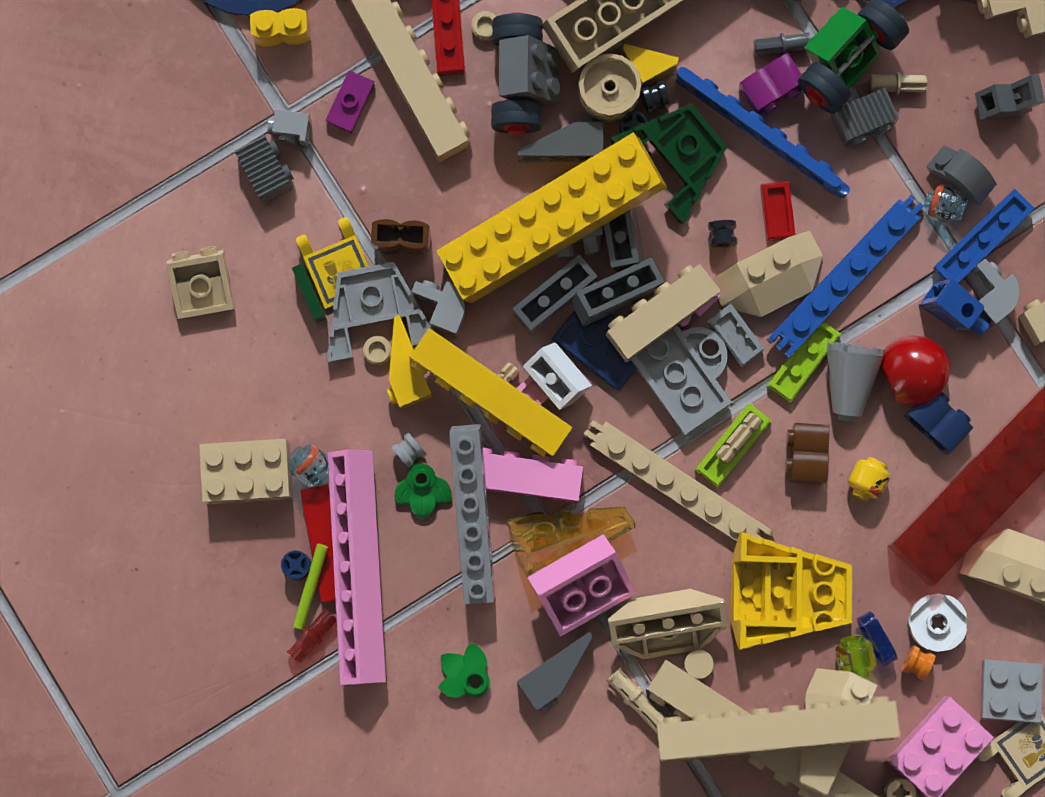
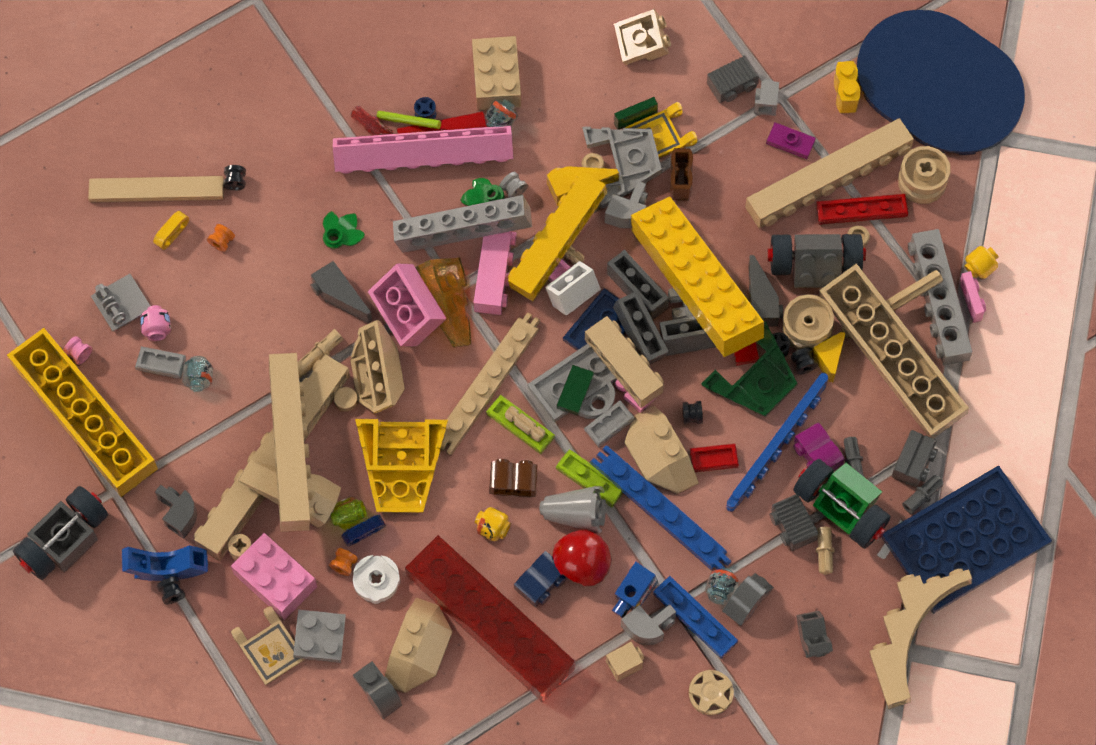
camera: 85 degrees right, 15 degrees down
(696, 374) = (575, 390): none -> dark green tile

